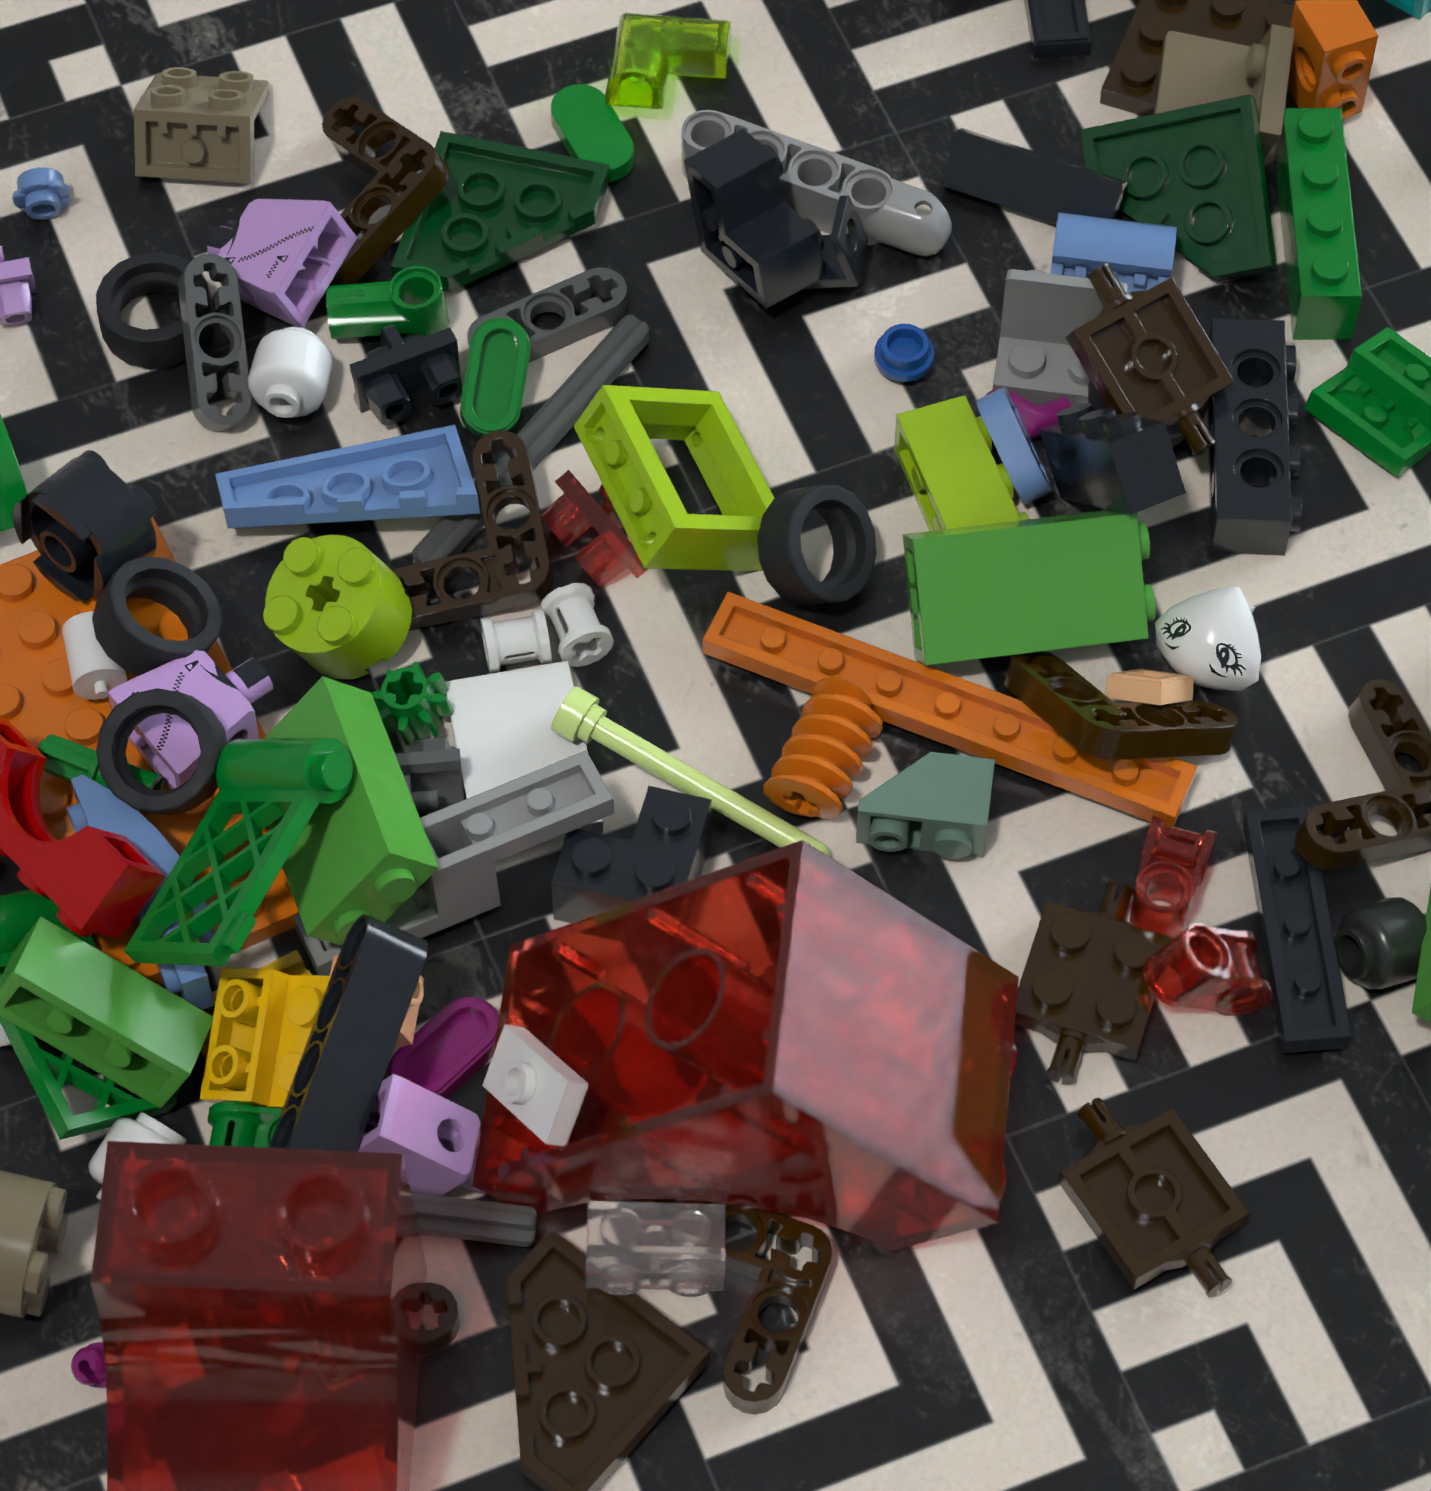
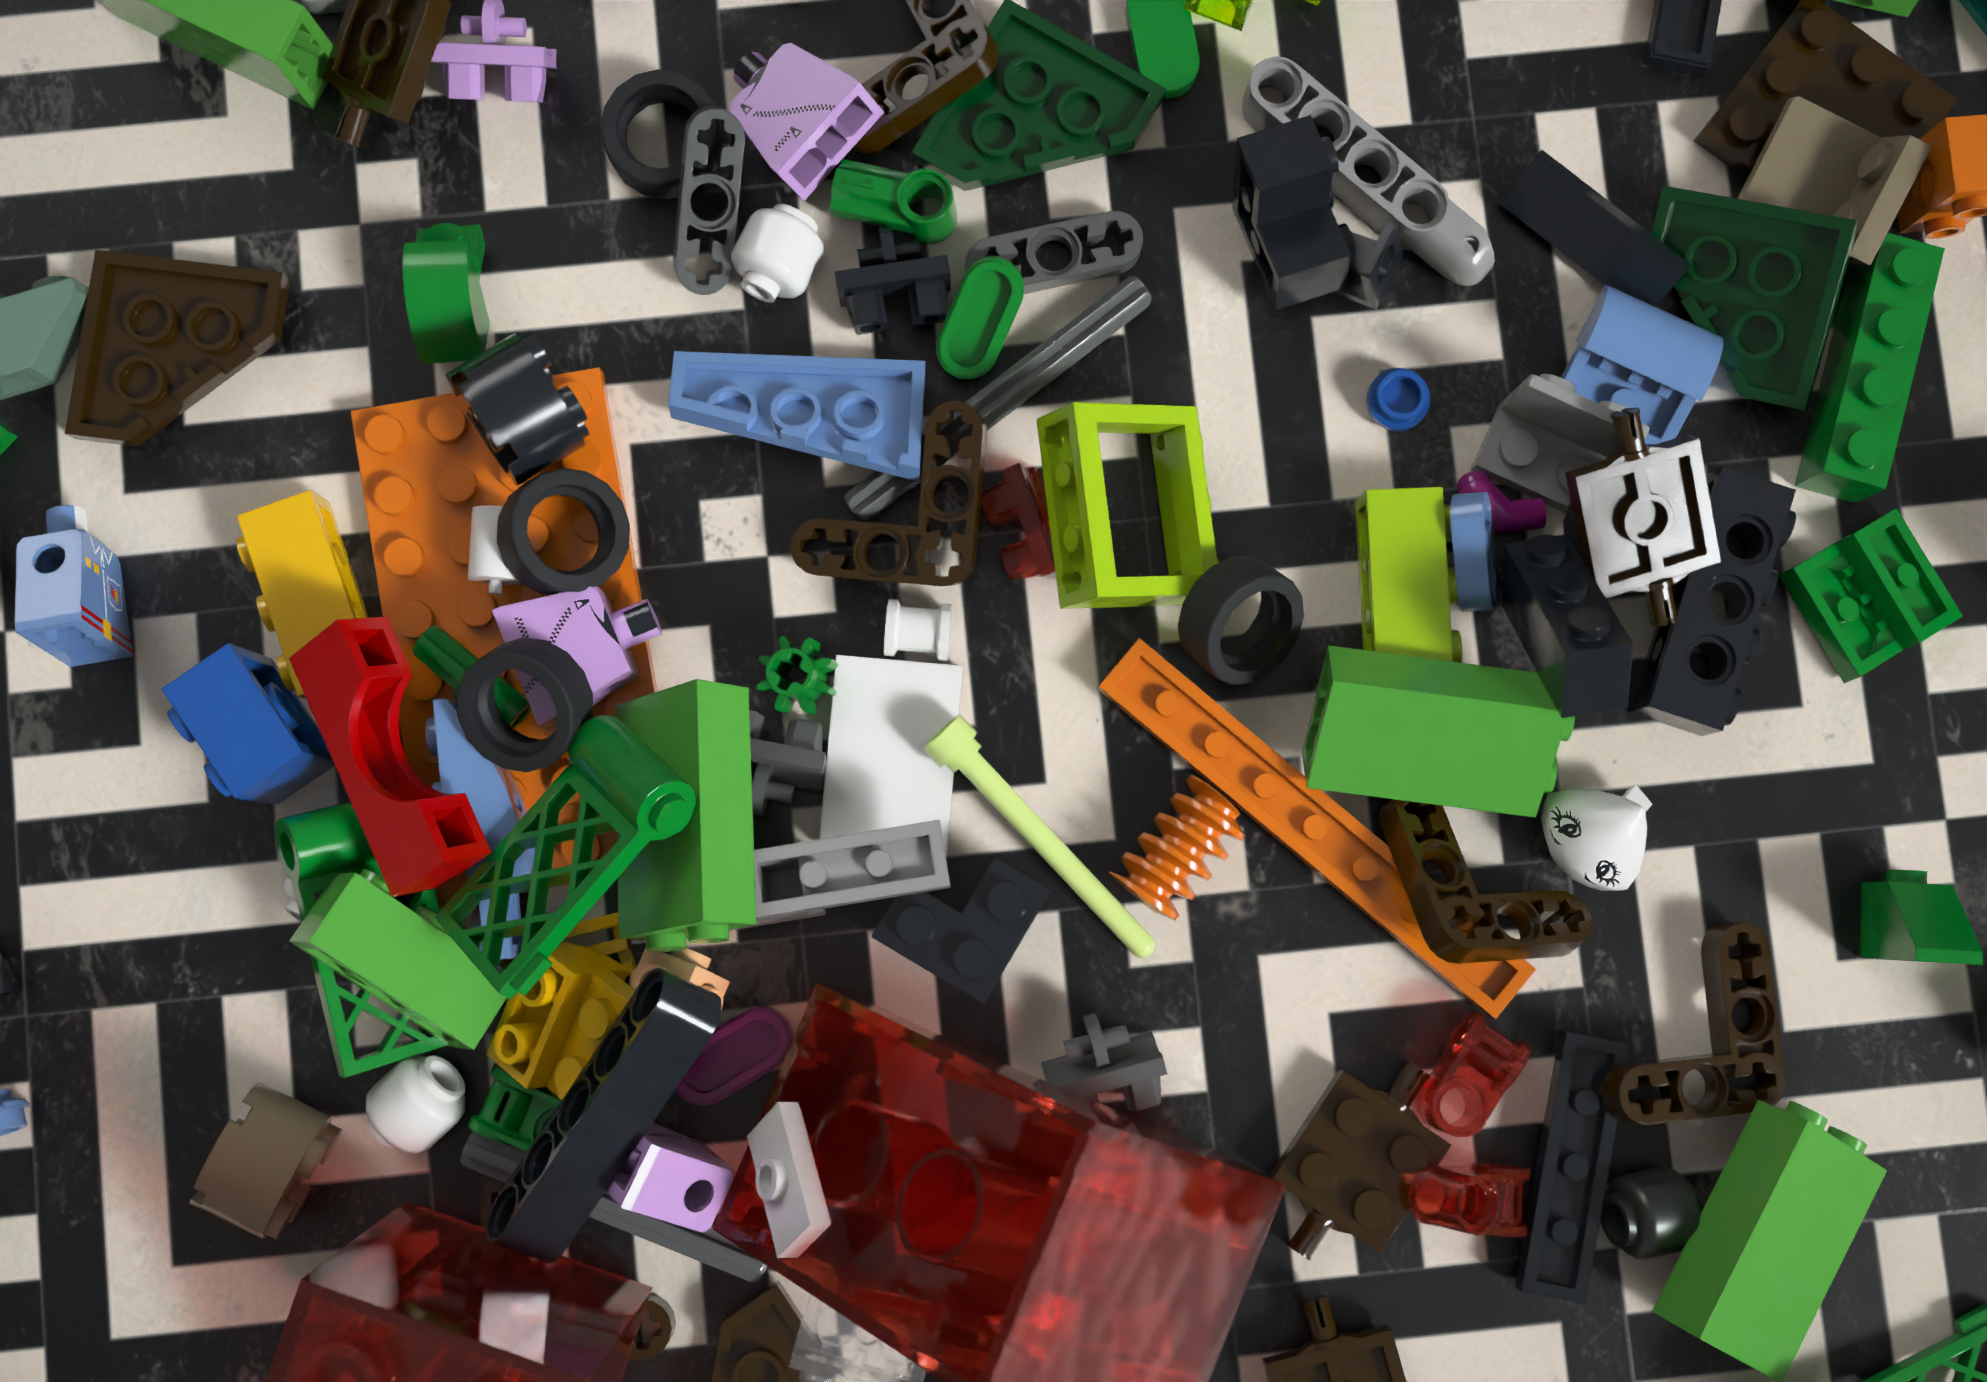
camera: 10 degrees right, 25 degrees up
(337, 606) = (748, 555): lime brick -> none
(577, 624) = (982, 628): white bush -> none
(931, 807) = (1272, 934): sand green slope -> none
(1149, 687) = (1518, 870): light nougat tile -> none

